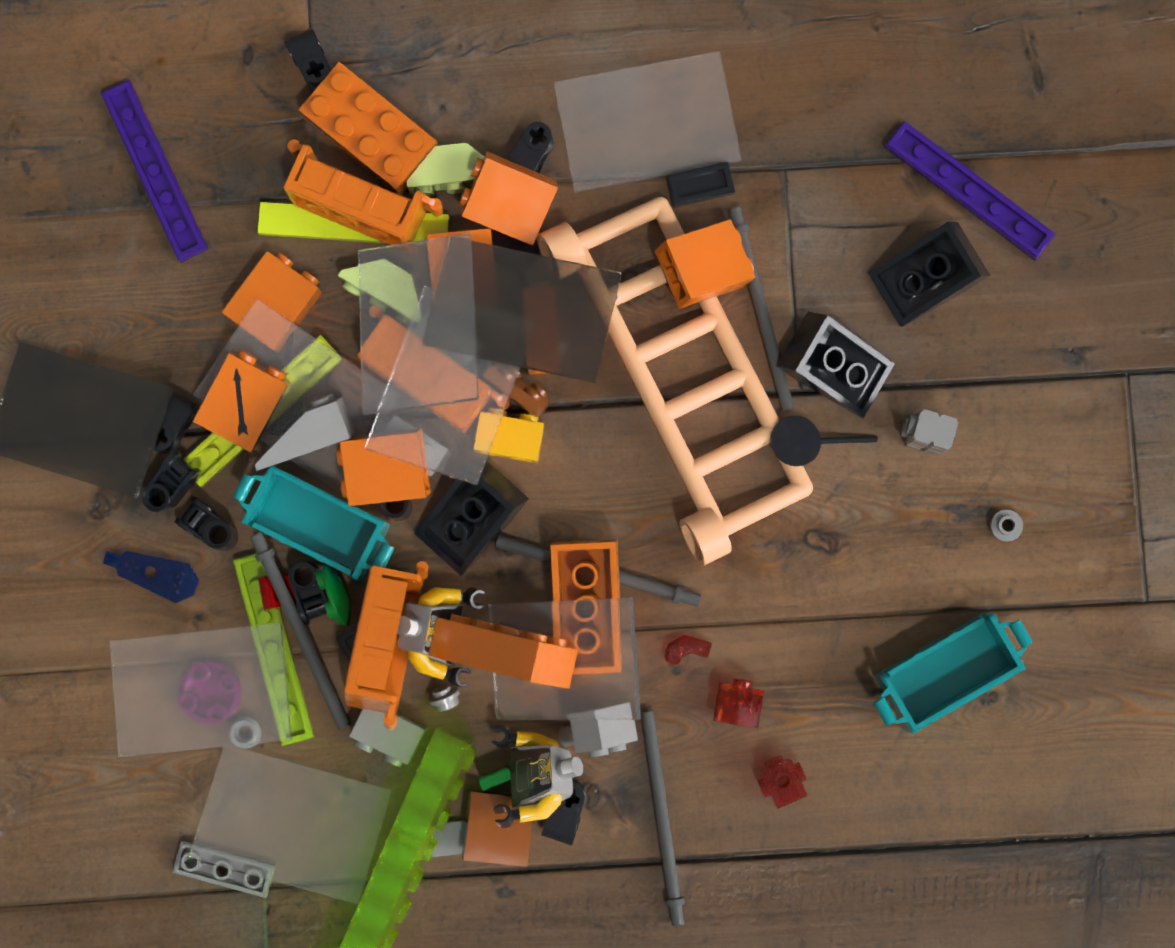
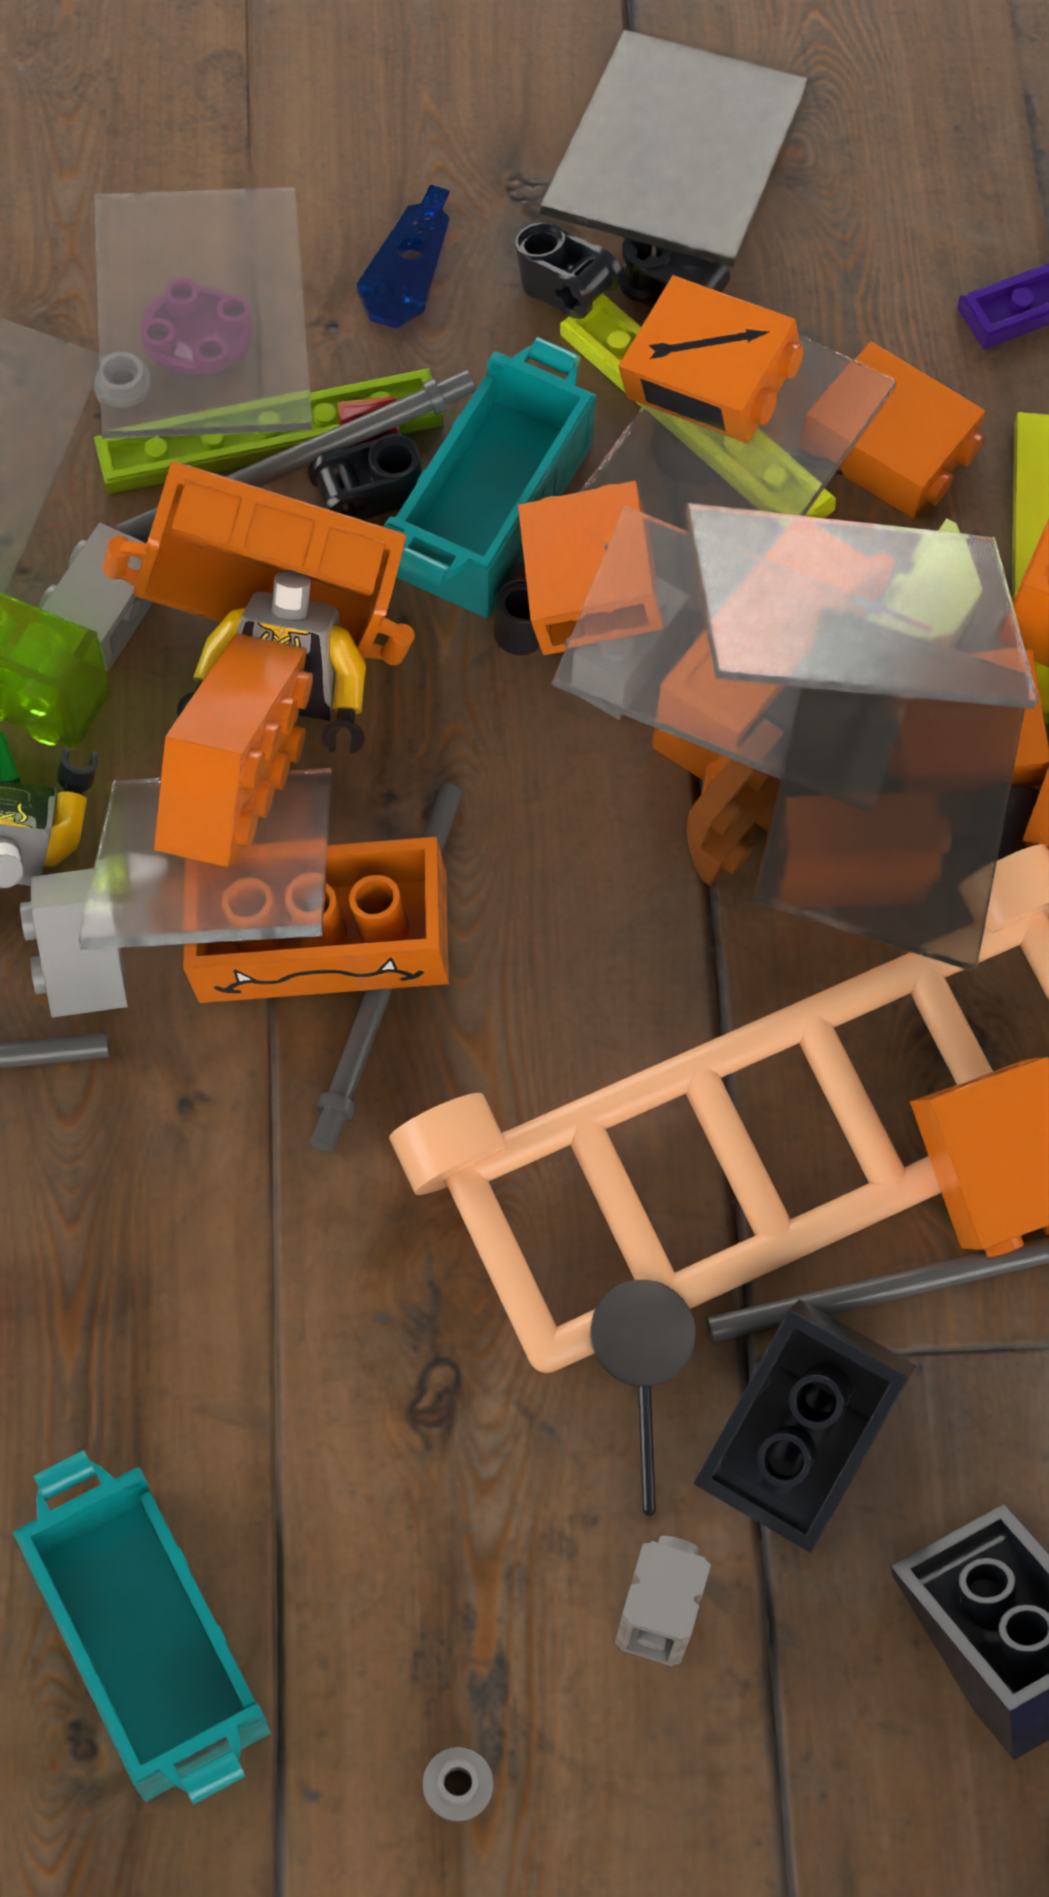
camera: 85 degrees right, 20 degrees down
(203, 522) = (488, 324): black piece -> none
(317, 428) = (655, 443): light grey slope -> none
(339, 602) = (363, 492): green dish -> none
(444, 698) = (159, 689): light grey plate -> none
(471, 518) = (505, 741): black slope -> none
(518, 438) = (648, 805): yellow brick -> none
(685, 645) = (233, 1114): clear red arm -> none
(739, 704) = (106, 1203): clear red brick -> none

